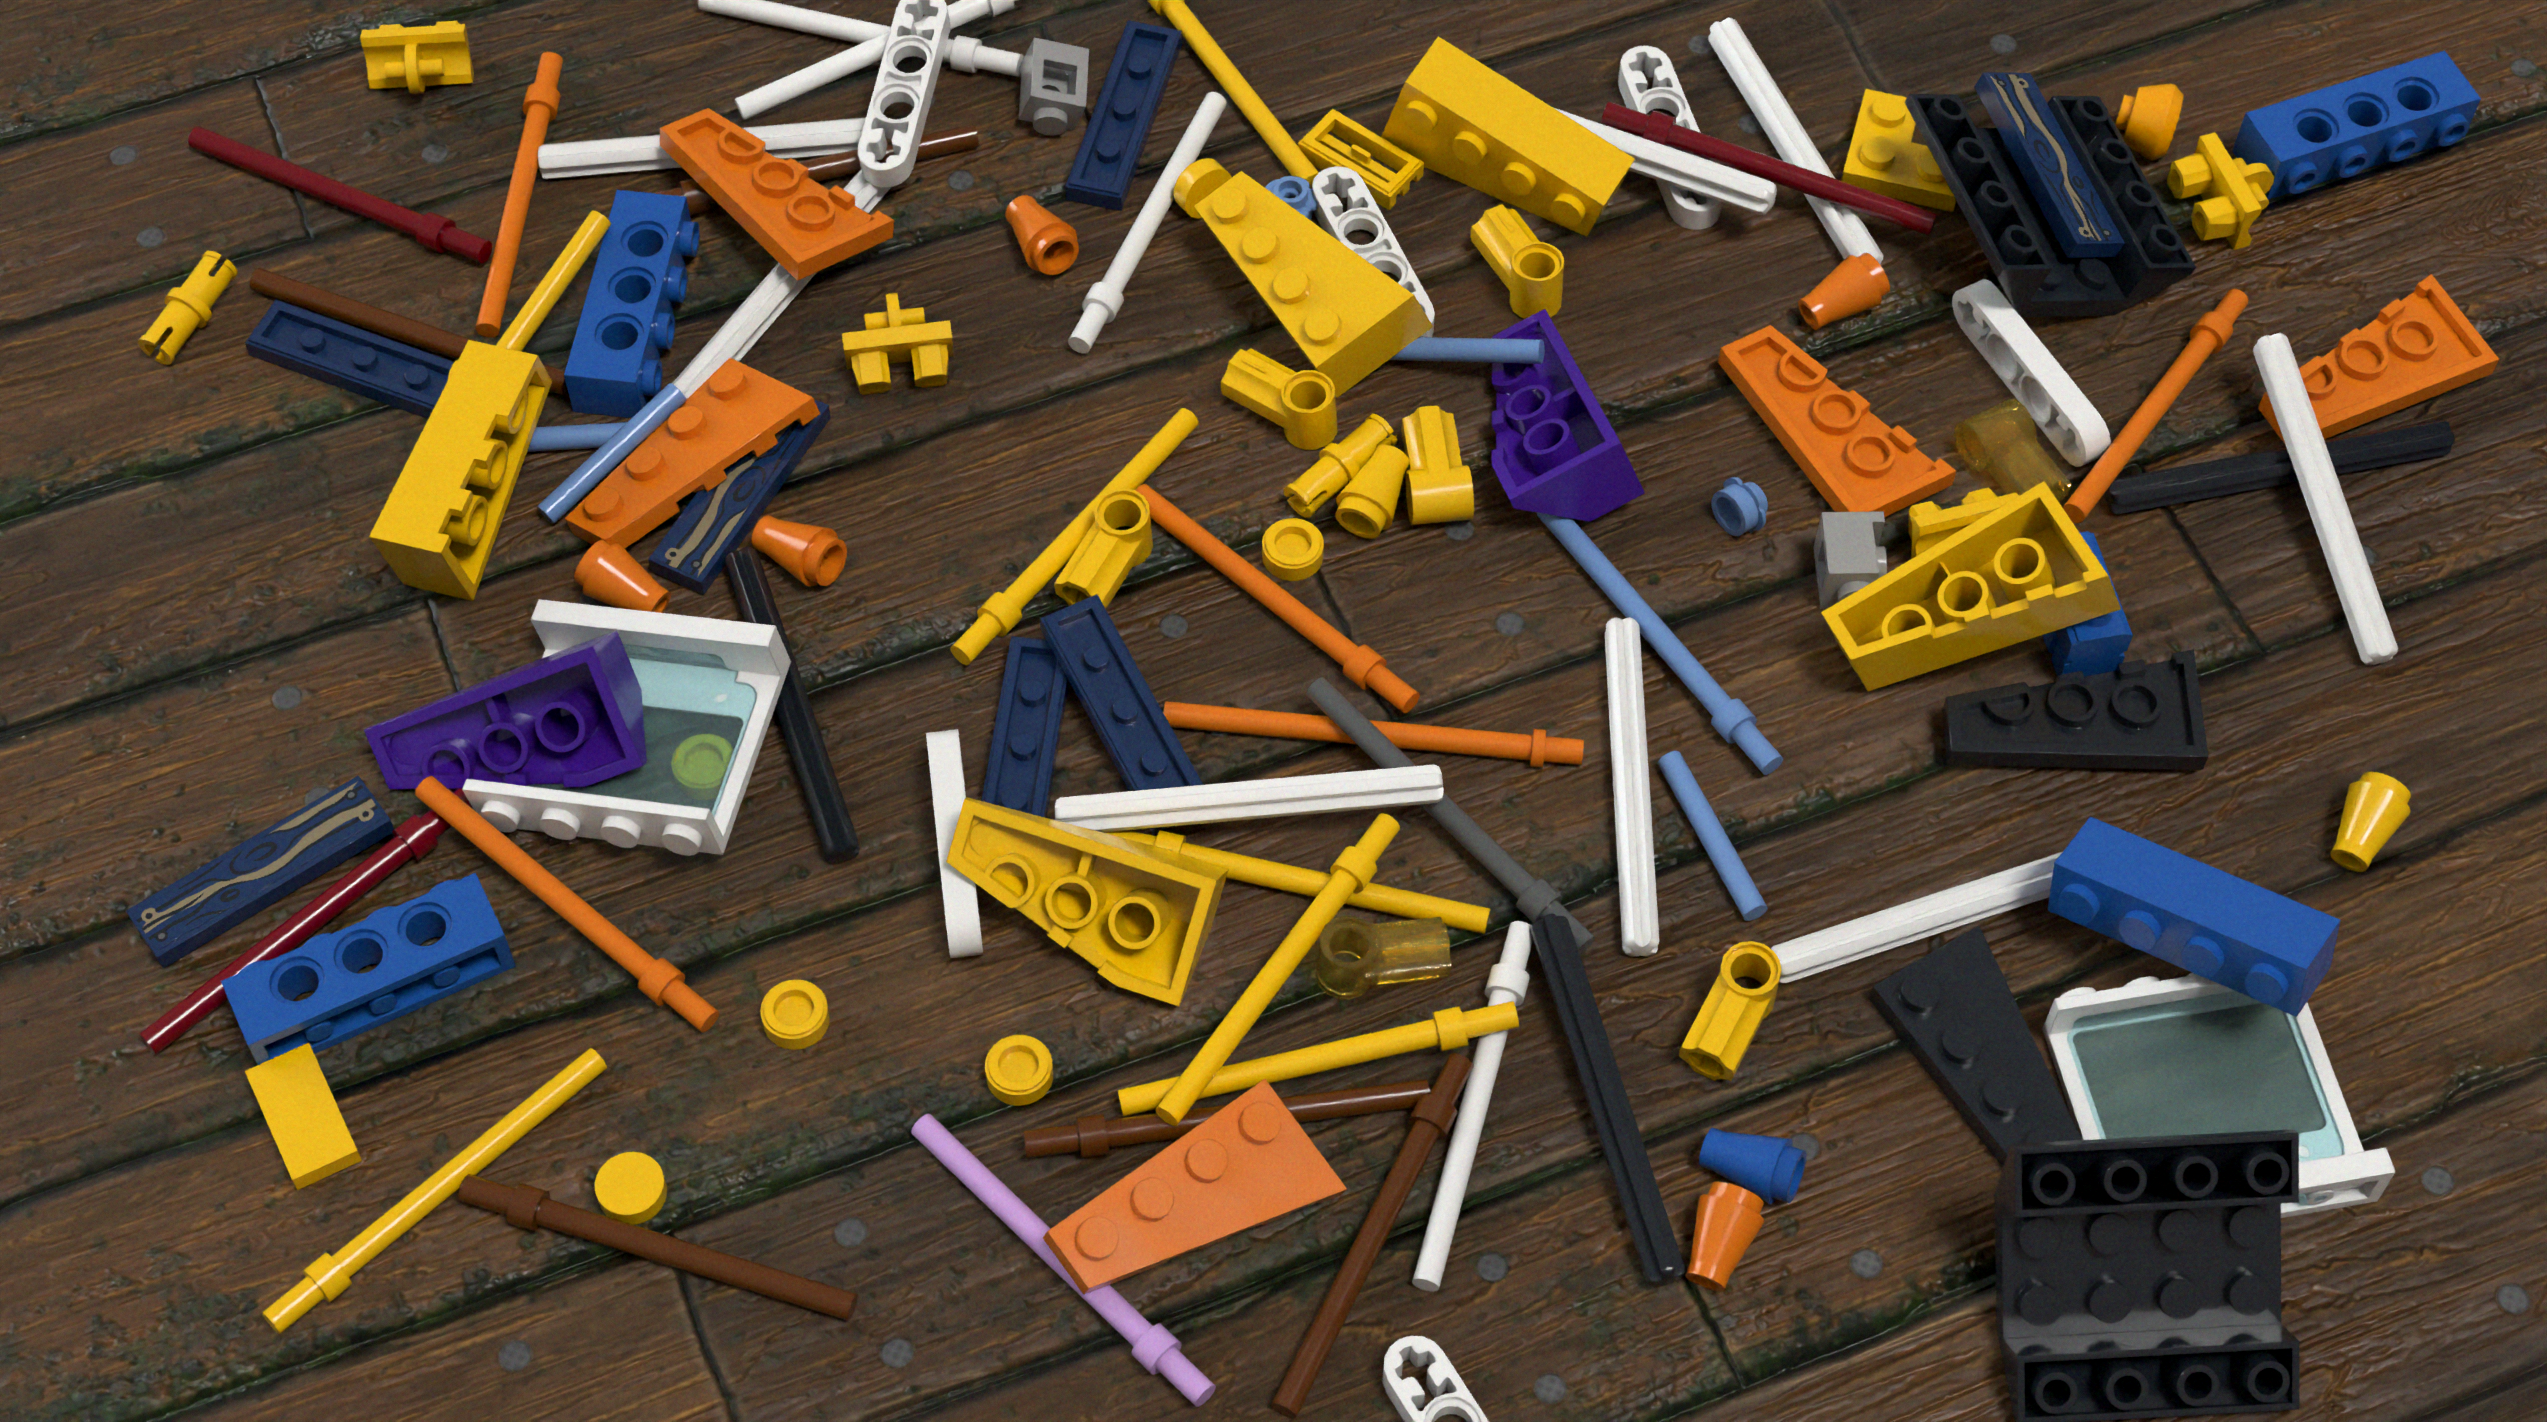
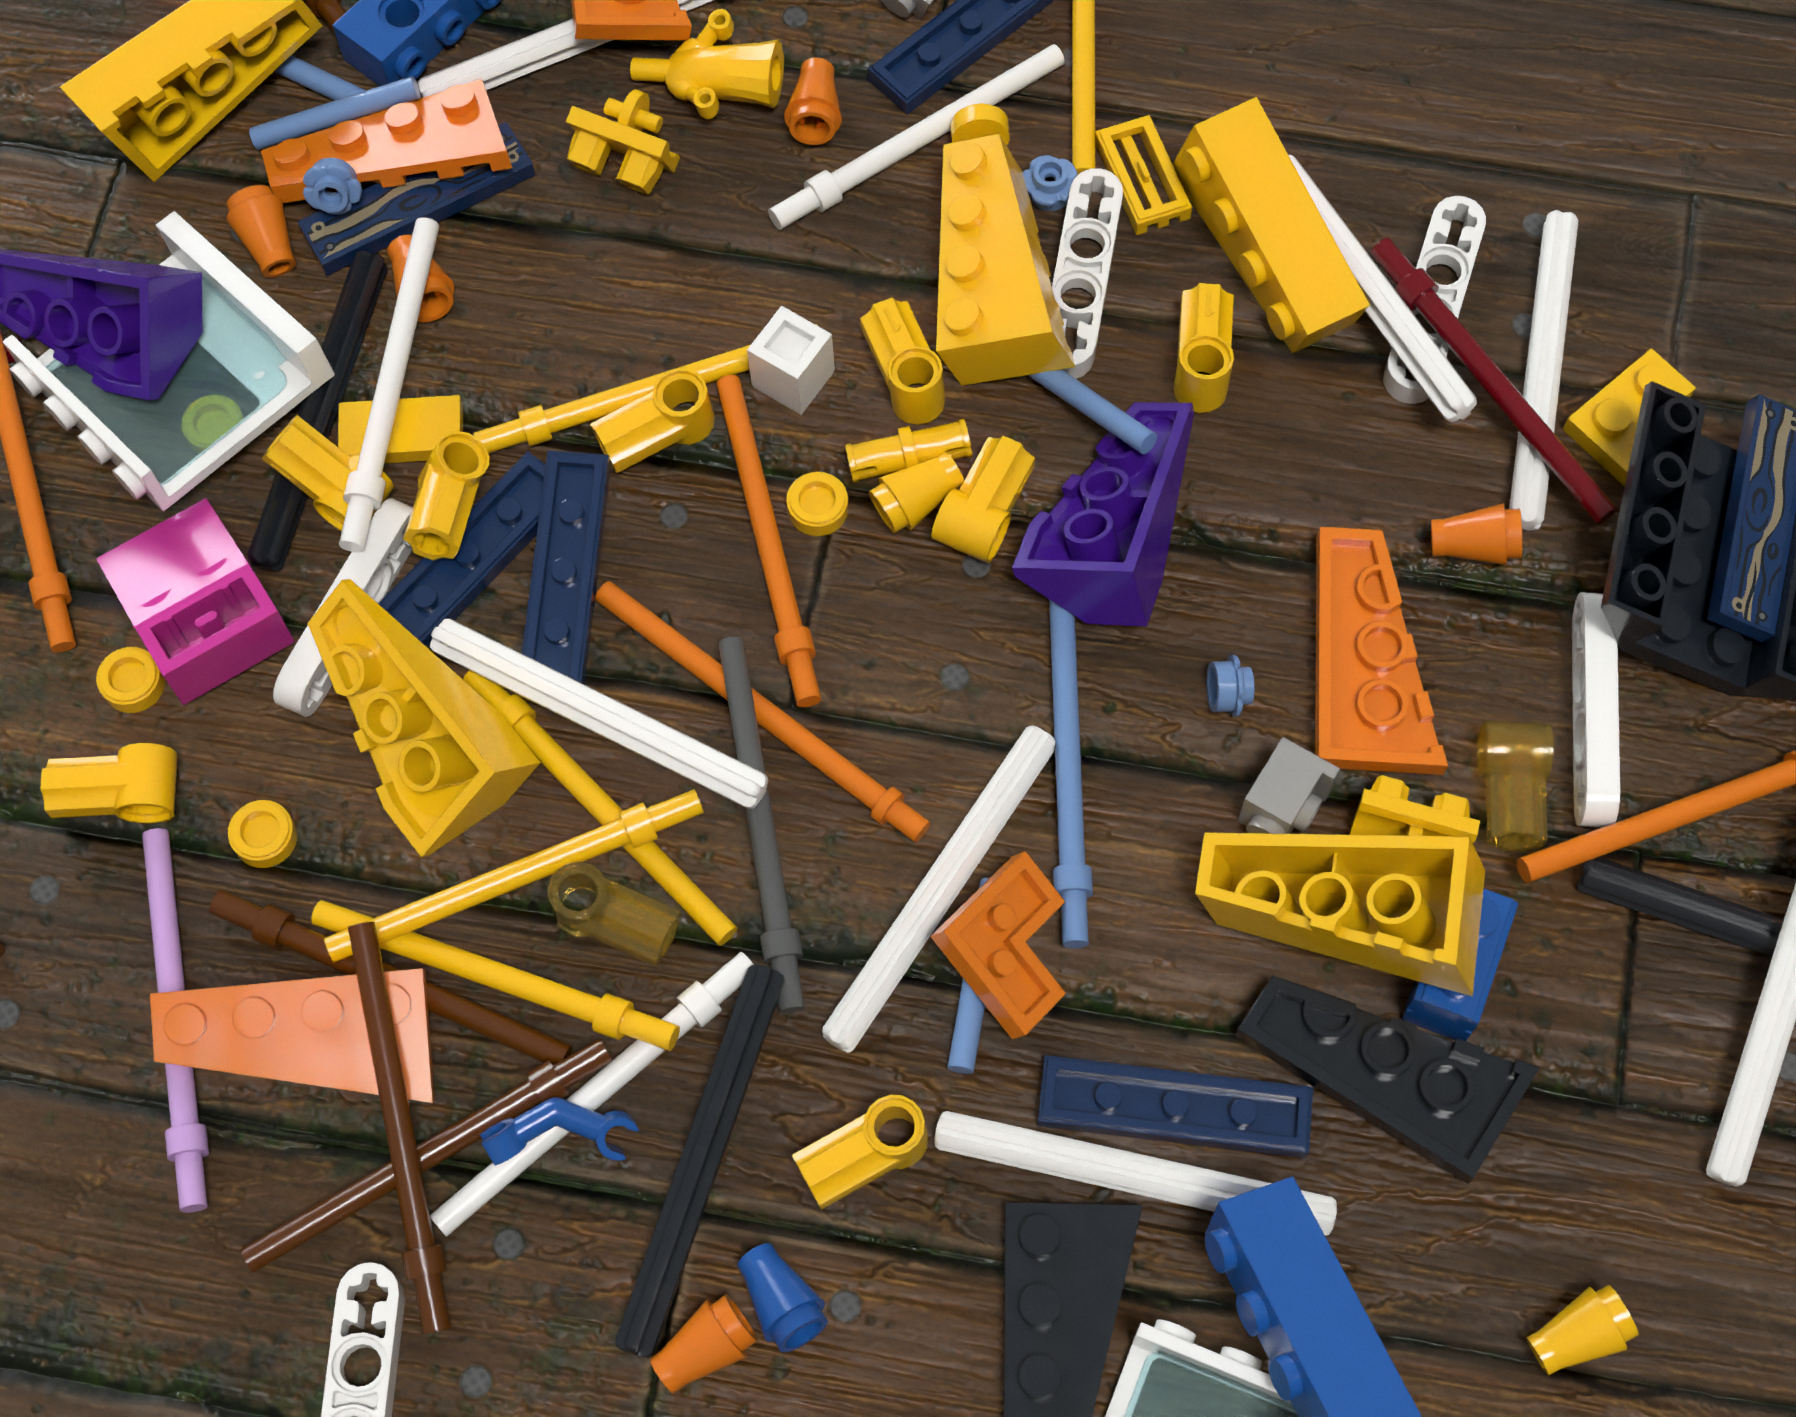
camera: 35 degrees right, 10 degrees up
(660, 498) = (332, 174): none -> medium blue plate
(811, 908) = (195, 601): none -> dark pink slope
(870, 746) = (316, 468): none -> yellow piece
(872, 1091) = (132, 785): none -> yellow piece
(880, 681) = (415, 429): none -> yellow tile
(904, 725) = (365, 485): none -> white bar
(936, 252) = (722, 72): none -> yellow piece
(972, 699) = (446, 495): none -> yellow piece
(1188, 443) = (791, 360): none -> white panel
(1438, 1310) = (423, 1259): none -> reddish brown bar
(1441, 1169) = (511, 1135): none -> blue arm
(1711, 795) = (990, 946): none -> orange plate
(1941, 843) = (1176, 1106): none -> dark blue tile

